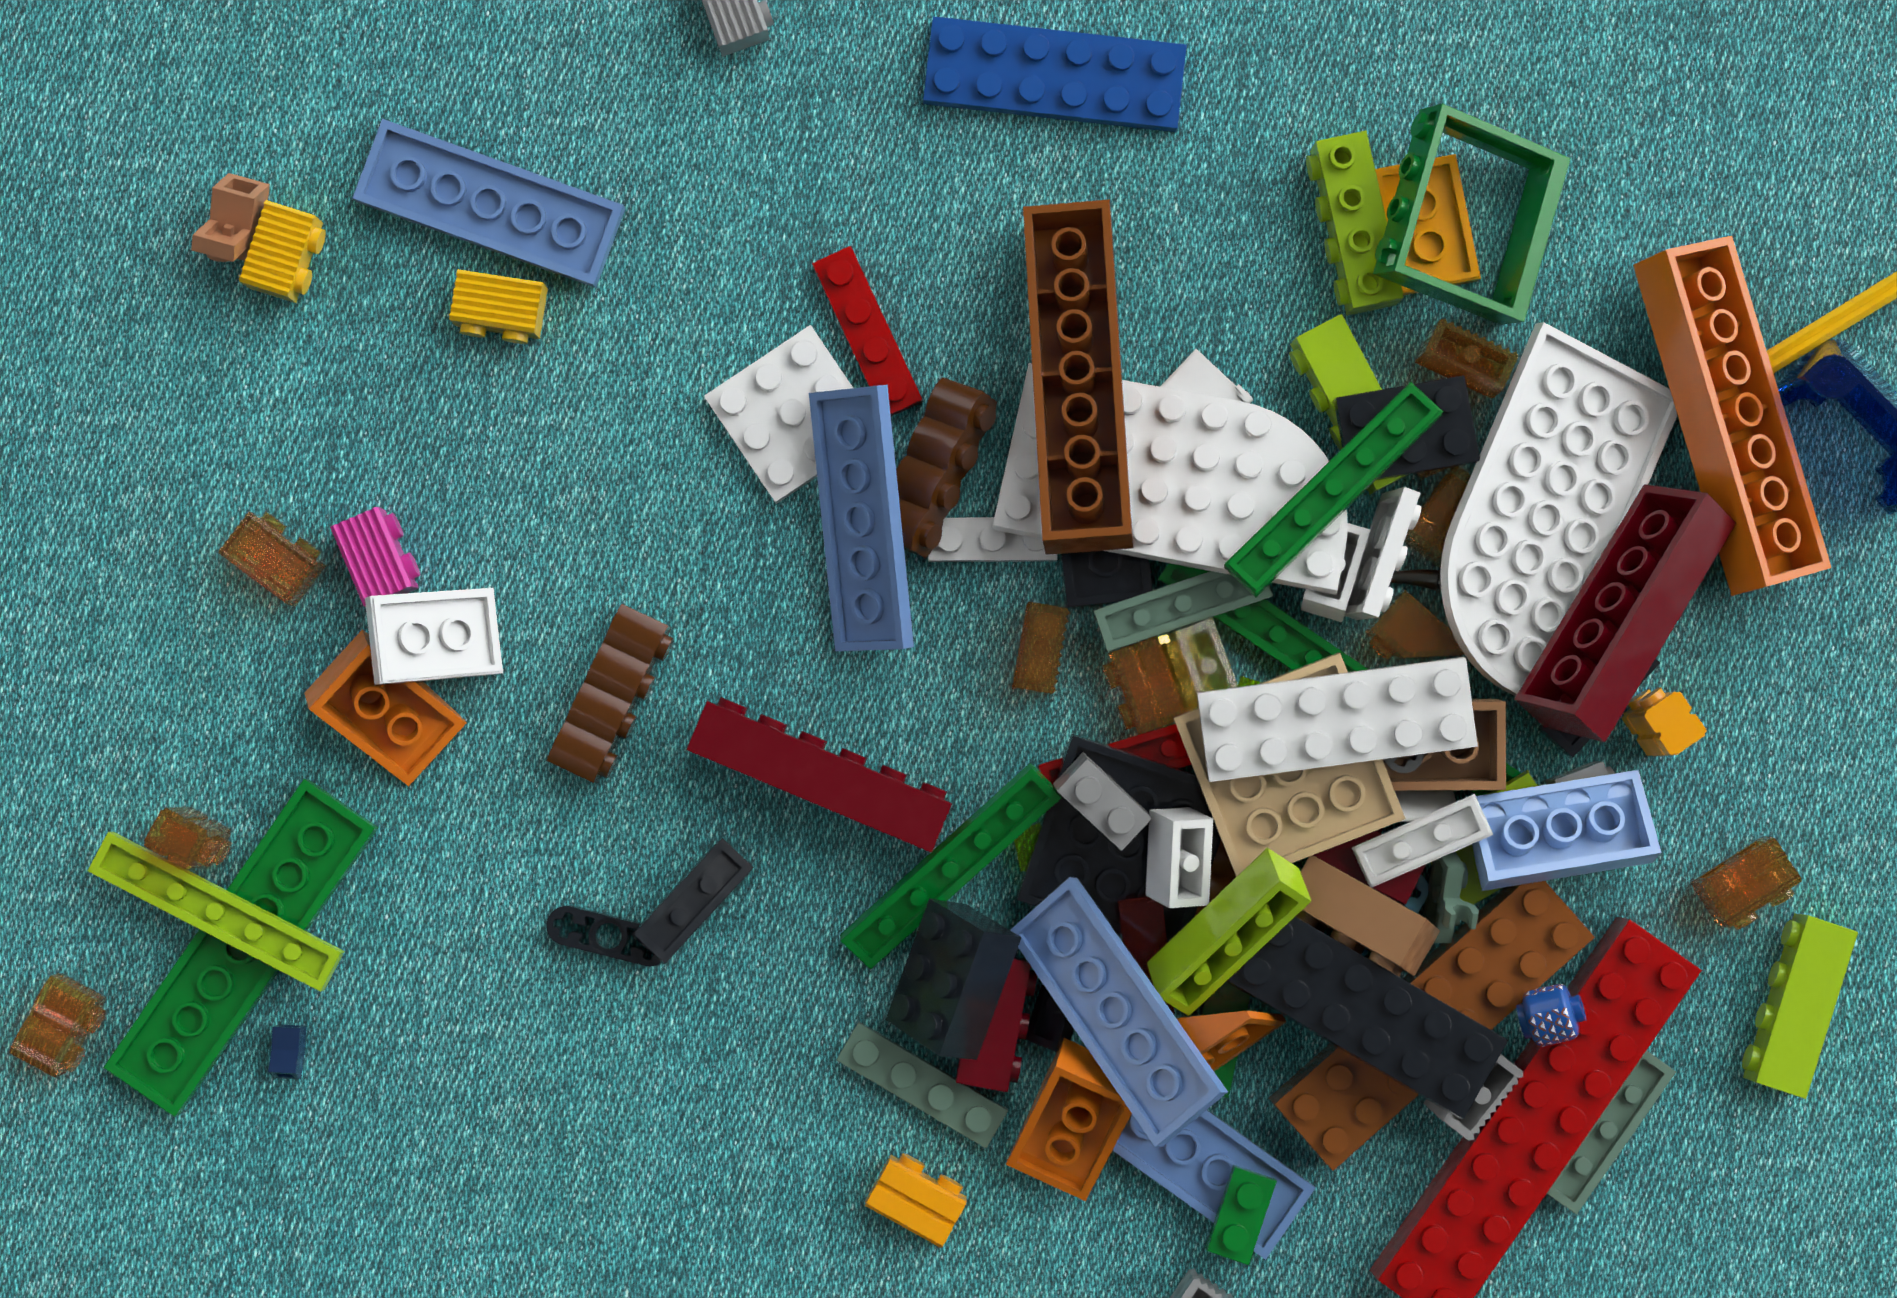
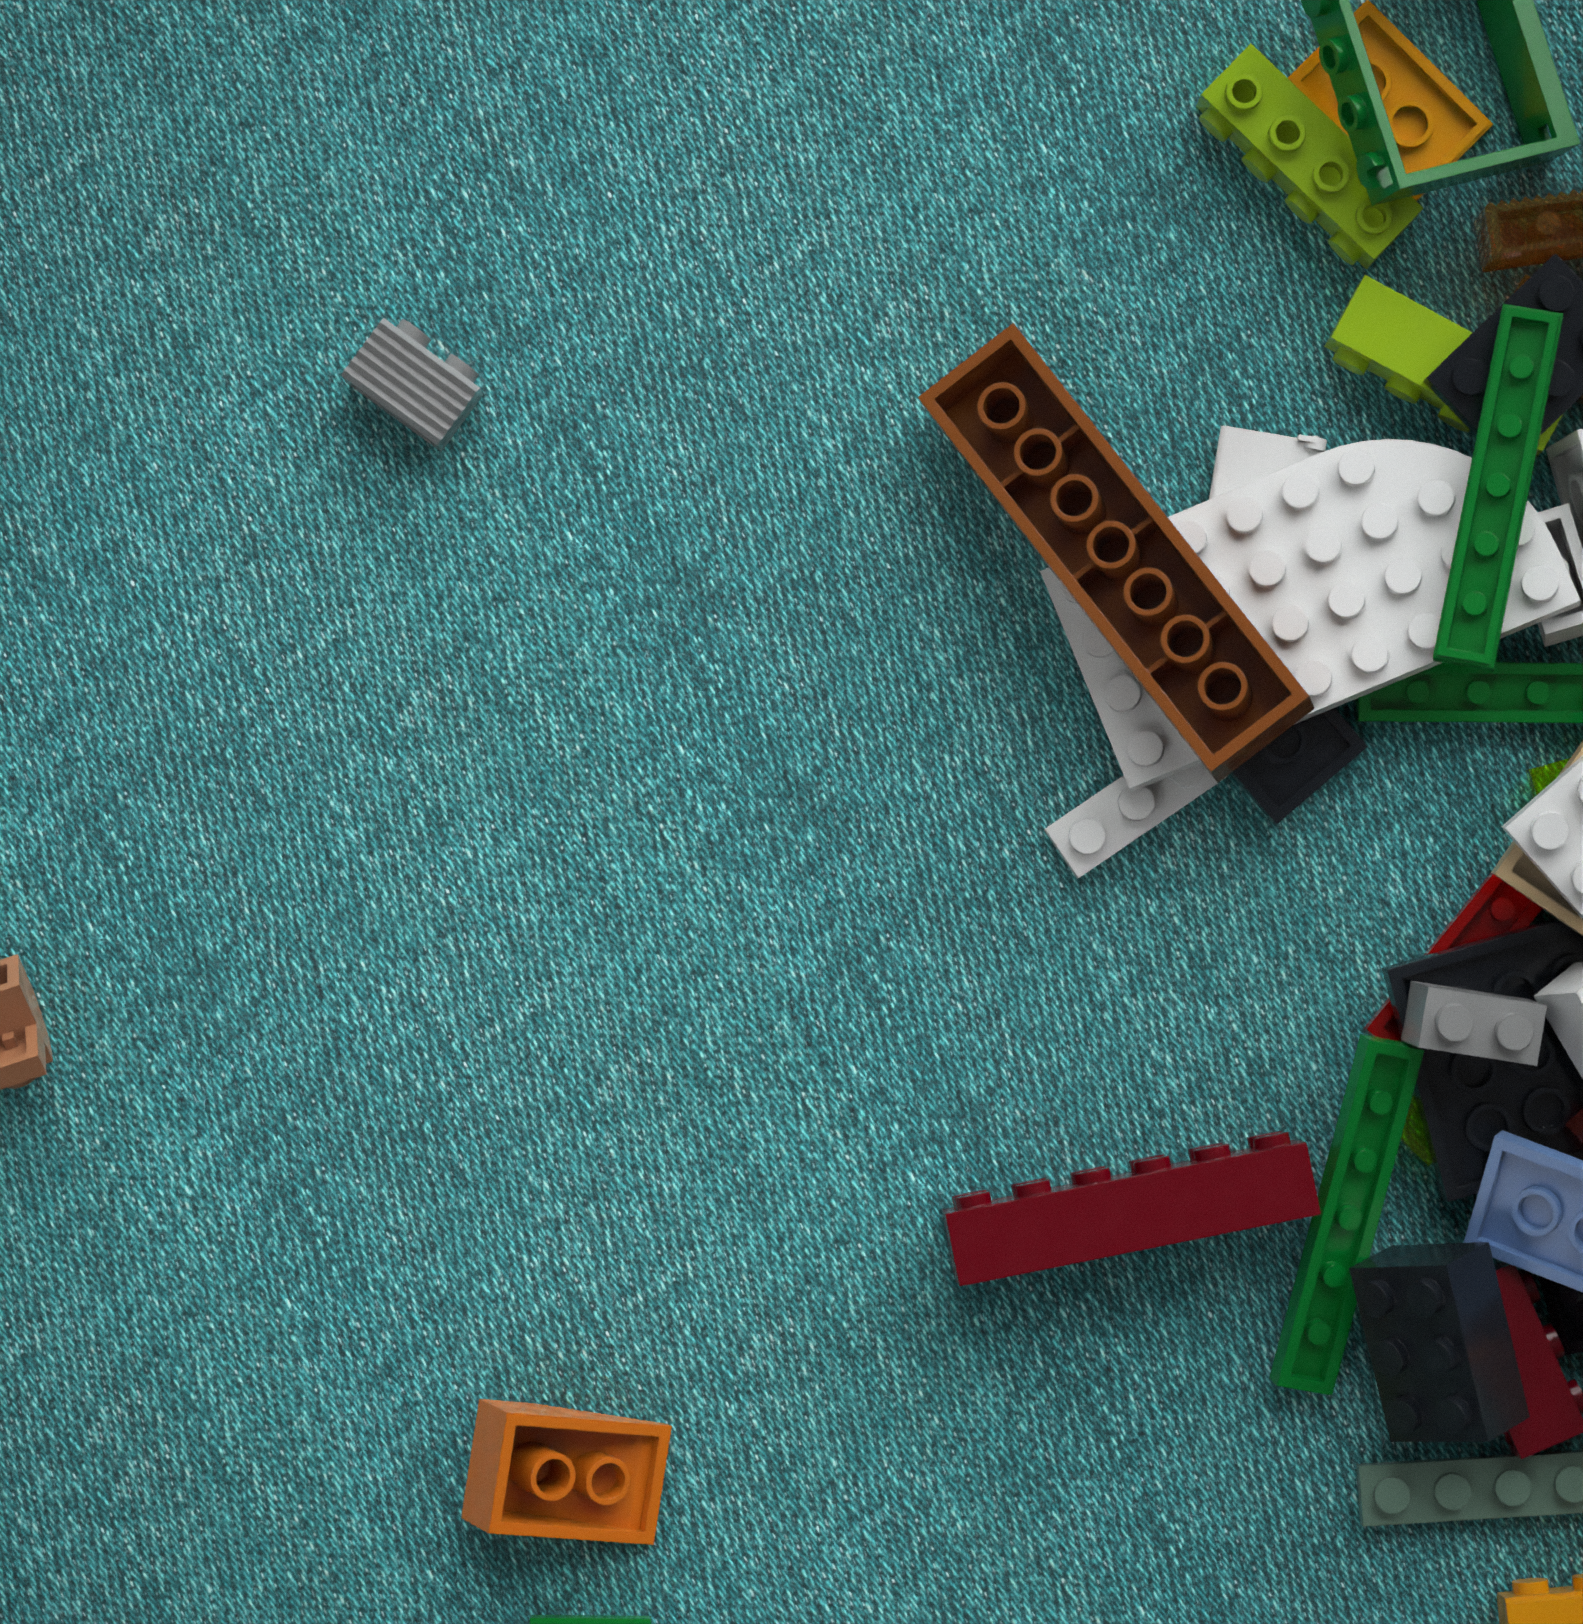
camera: 30 degrees left, 0 degrees up
(272, 557) = (318, 1385): clear orange brick -> none
(282, 252) = (88, 1022): yellow brick -> none
(375, 555) = (437, 1303): dark pink brick -> none
(433, 635) = (570, 1351): white tile -> none
(489, 203) = (288, 804): medium blue plate -> none
(498, 306) = (380, 917): yellow brick -> none
(574, 938) = (966, 1588): black beam -> none
(609, 694) = (816, 1280): reddish brown brick -> none
(692, 901) = (1075, 1455): black plate -> none
(770, 410) = (806, 812): white plate -> none
(861, 519) = (974, 883): medium blue plate -> none
(866, 328) = (828, 660): red plate -> none
(938, 459) = (1013, 758): reddish brown brick -> none
(1040, 648) = (1278, 894): clear orange brick -> none
(1054, 74) = (842, 214): blue plate -> none
(1145, 686) = (1427, 856): clear orange brick -> none
(1172, 608) = (1398, 747): sand green plate -> none
(1197, 661) = (1470, 789): clear yellow brick -> none

